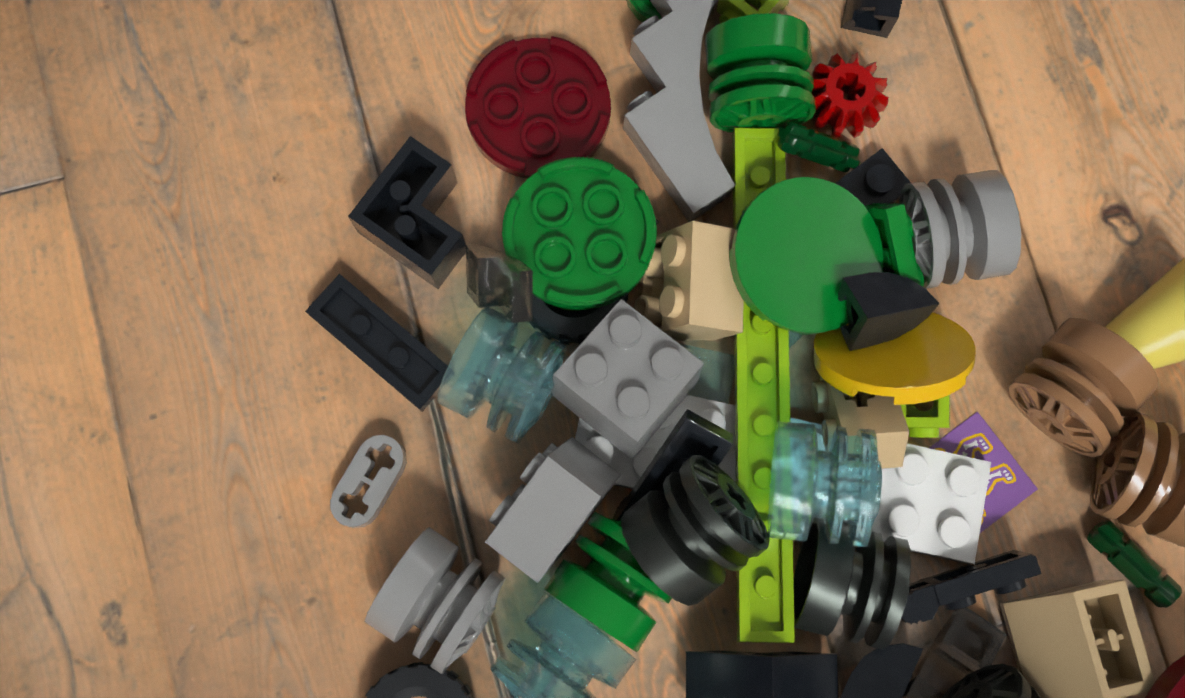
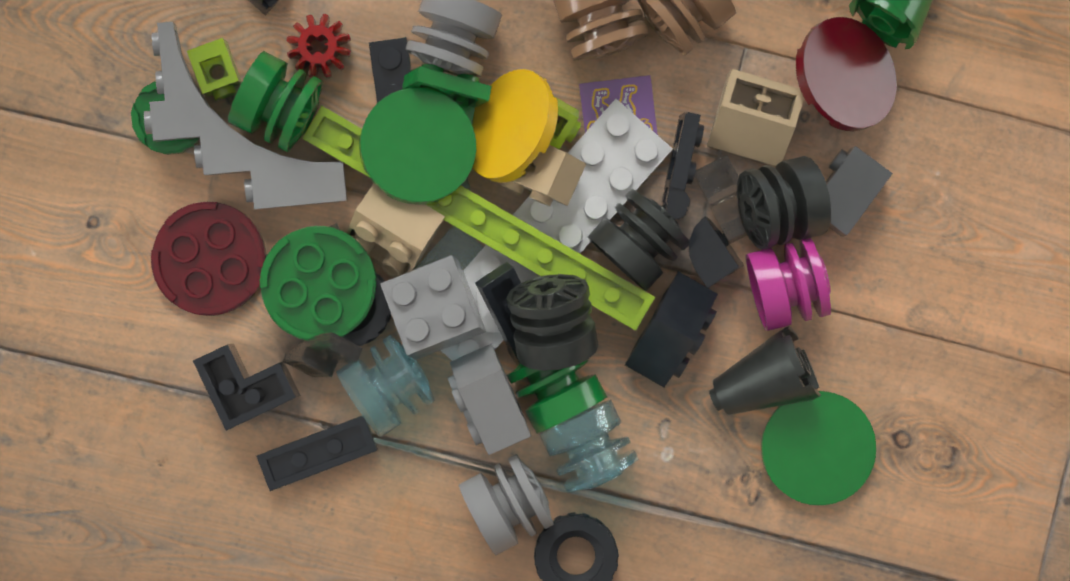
camera: 55 degrees left, 10 degrees up
(357, 476) = (397, 513): light grey beam -> none
(818, 147) = (346, 88): dark green axle -> none
(823, 484) = (568, 230): clear light blue wheel -> none
(882, 307) = (478, 118): black brick -> none
(1134, 564) = (730, 45): dark green axle -> none

